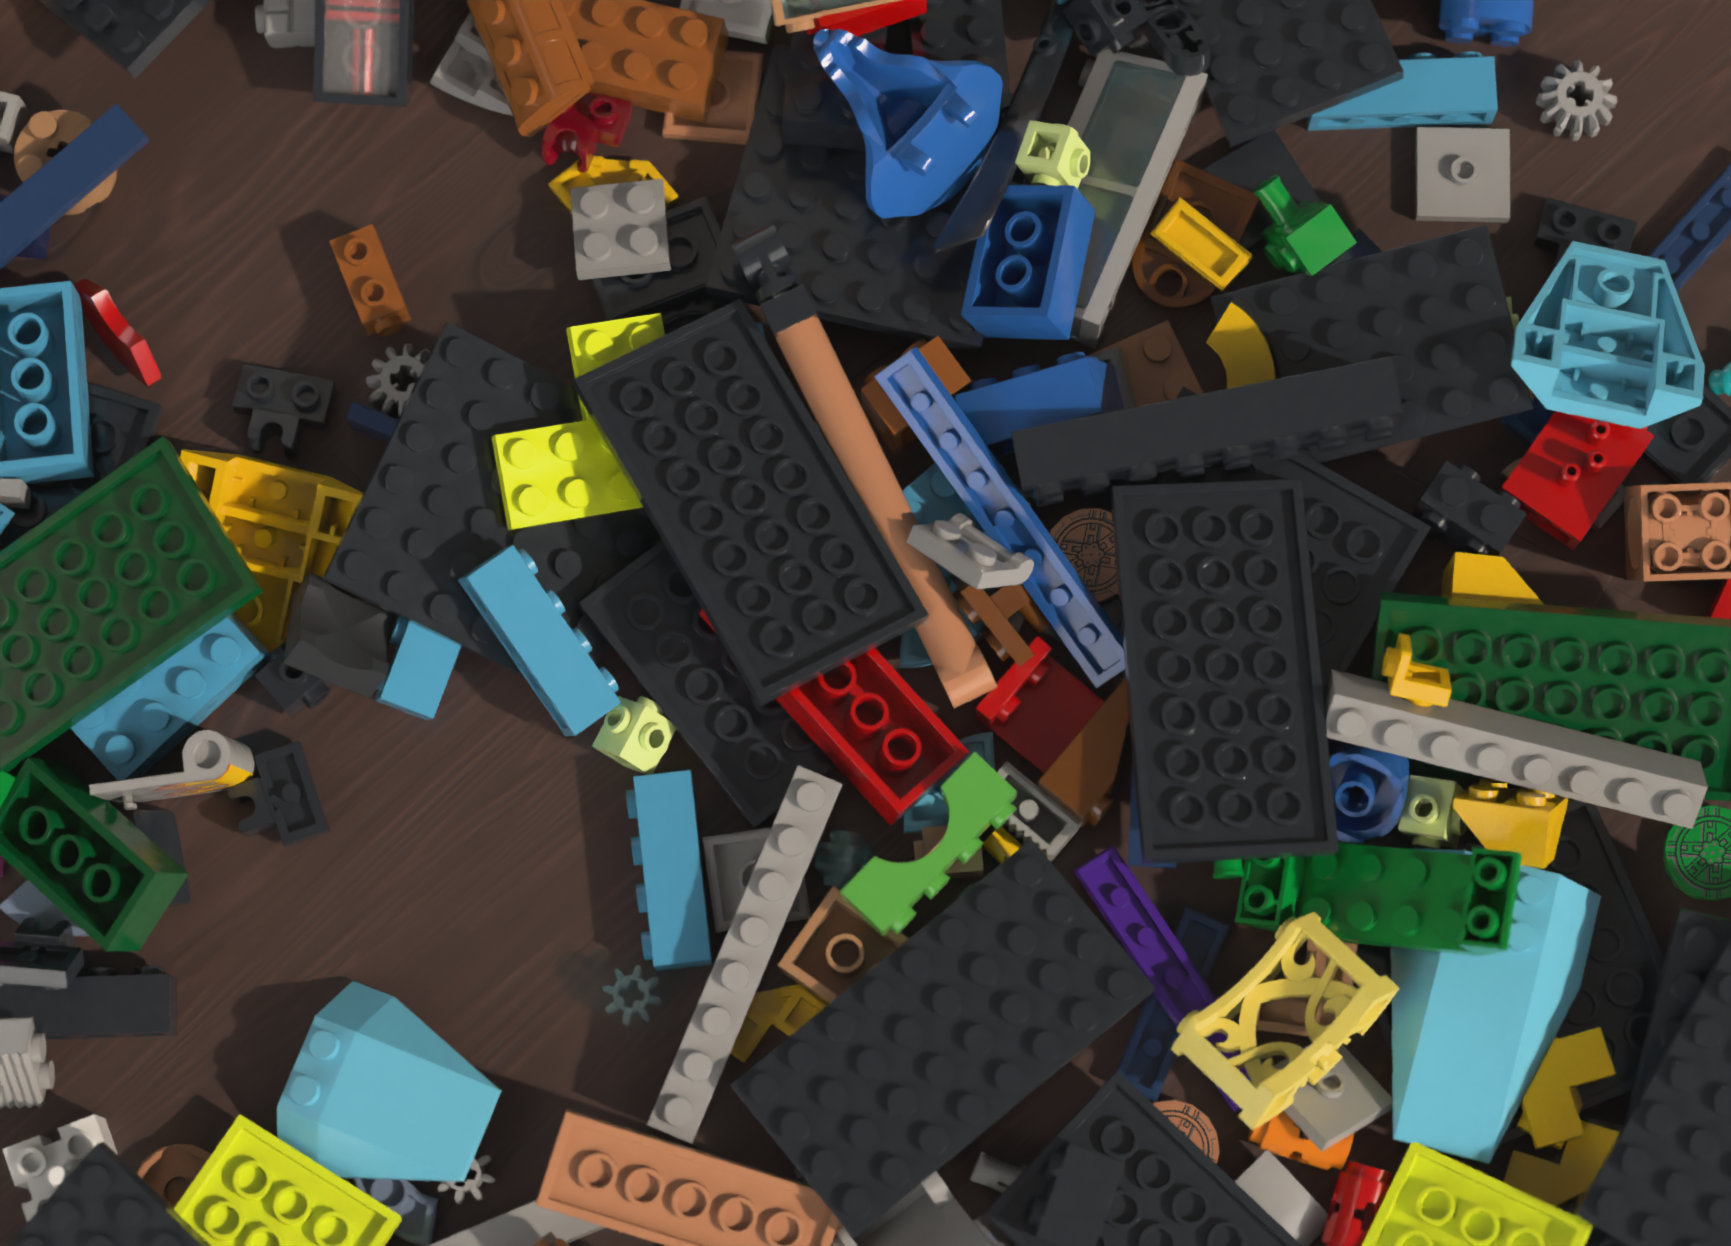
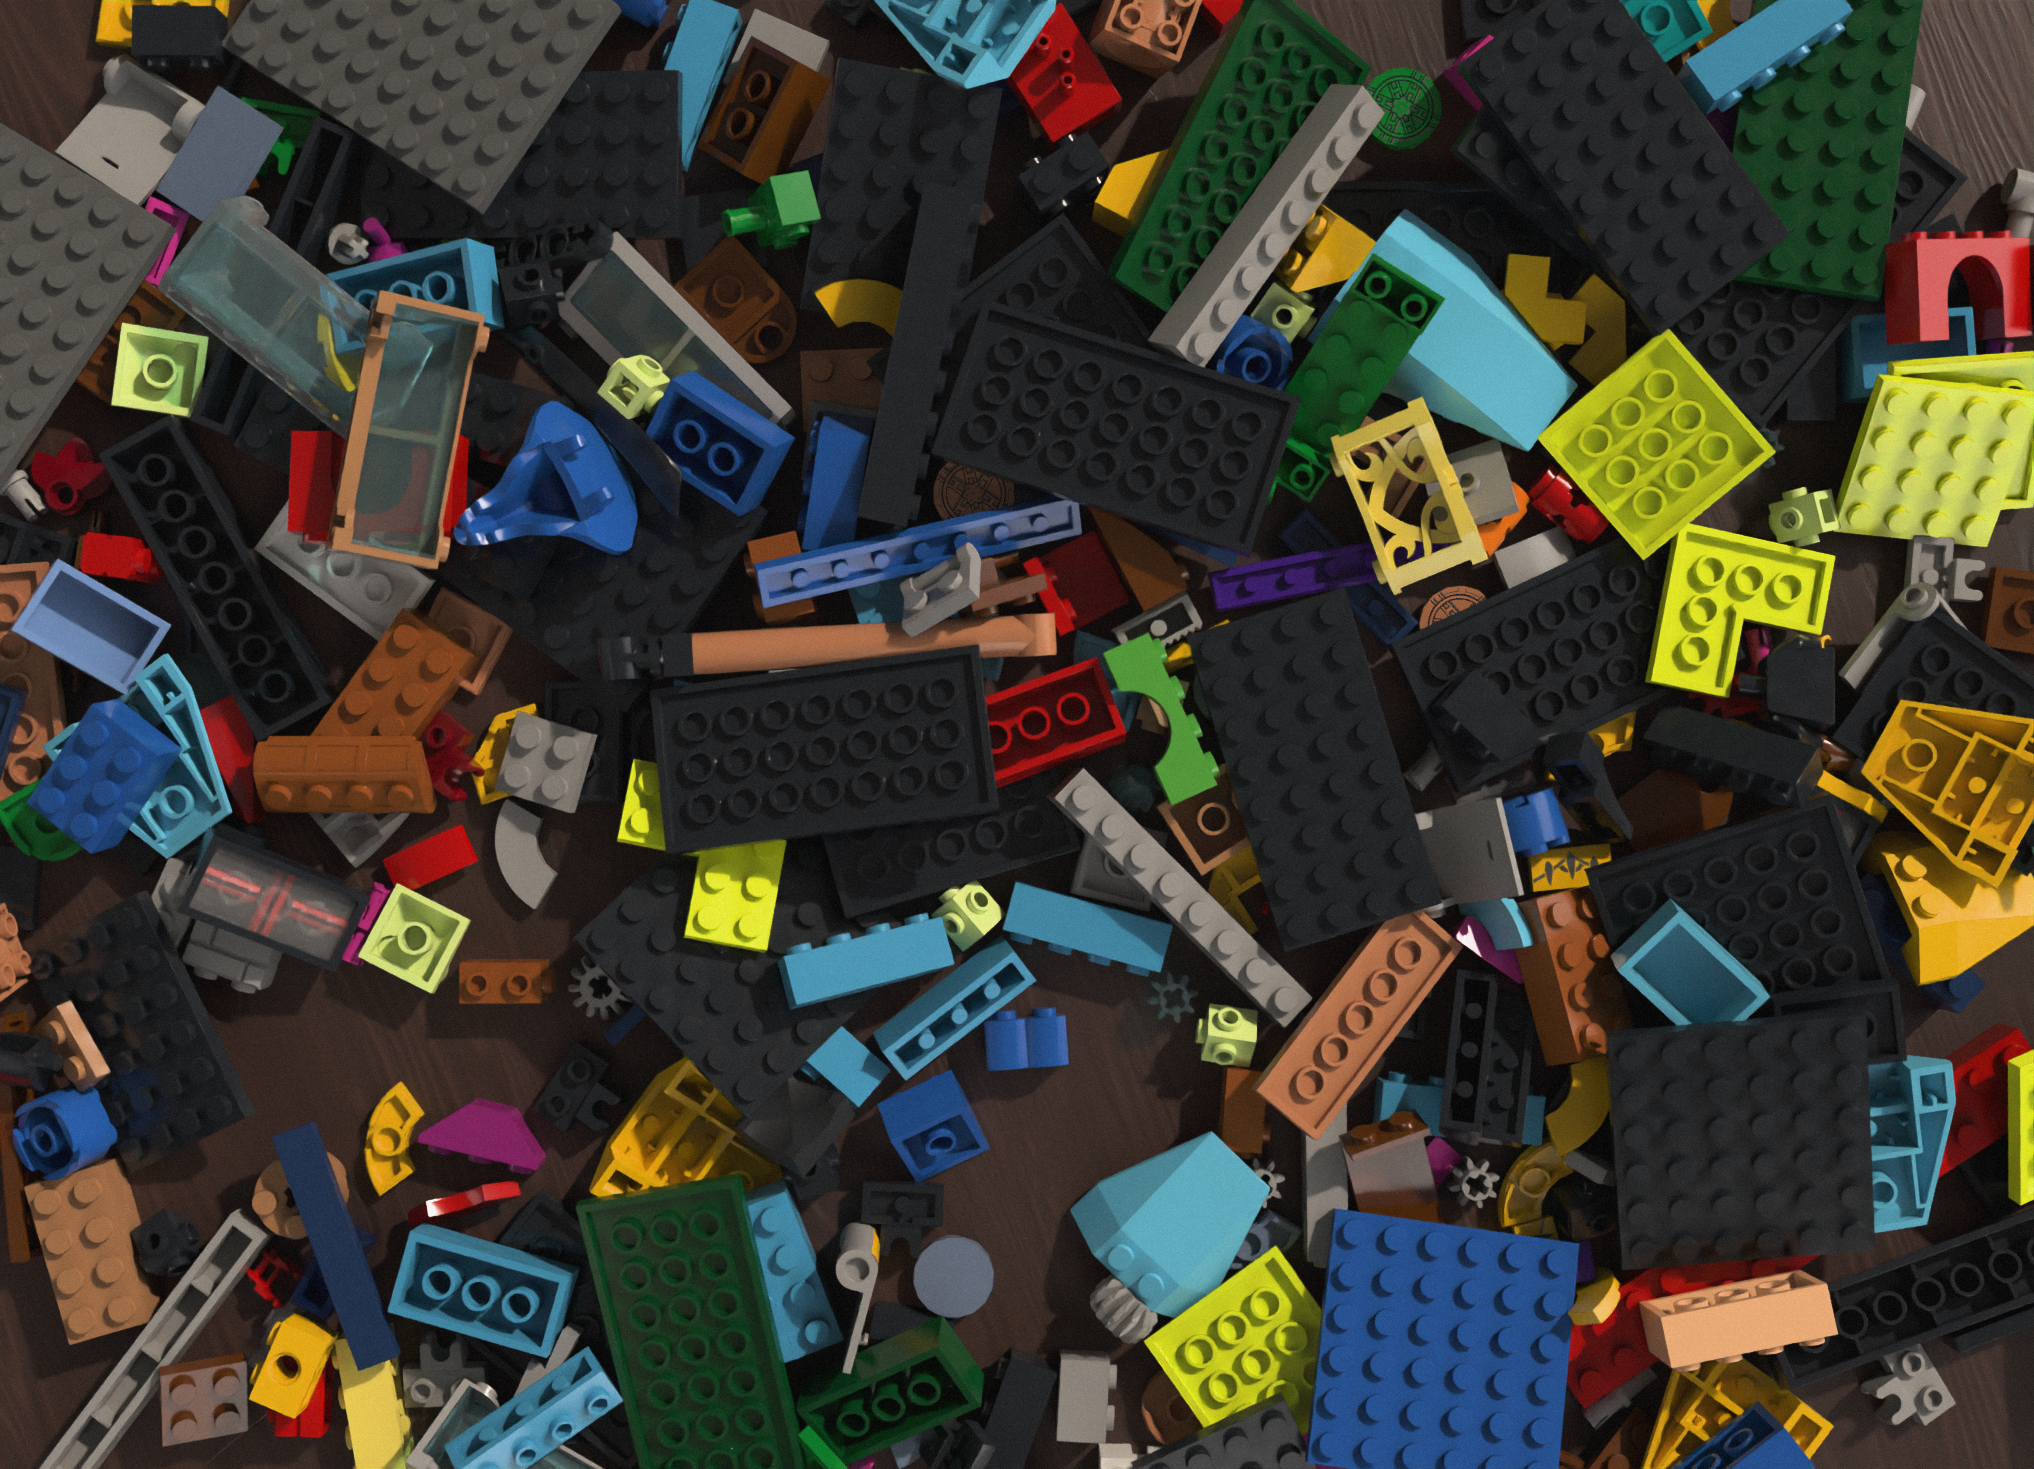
camera: 70 degrees left, 10 degrees up
(153, 1075) = (1083, 1396): none -> light grey brick
(156, 230) = (388, 1138): none -> yellow tile
(199, 325) = (487, 1134): none -> magenta slope
(232, 882) = (953, 1276): none -> sand blue tile
(264, 1075) = (1122, 1310): none -> light grey gear
(376, 119) = (379, 896): none -> dark pink pin
(379, 170) = (415, 939): none -> yellowish green slope
(388, 792) = (933, 1126): none -> blue slope
(468, 155) = (431, 859): none -> red slope
(511, 244) = (520, 853): none -> light grey tile
(521, 853) = (1026, 1040): none -> blue brick
(527, 759) = (953, 1007): none -> dark azure brick
(530, 1124) = (1242, 1111): none -> dark orange brick
(613, 1070) = (1227, 1035): none -> yellowish green brick
(1201, 245) = (752, 297): yellow tile -> none
(1402, 179) = (763, 112): none -> reddish brown slope
(1414, 681) = (1186, 279): yellow bracket -> none

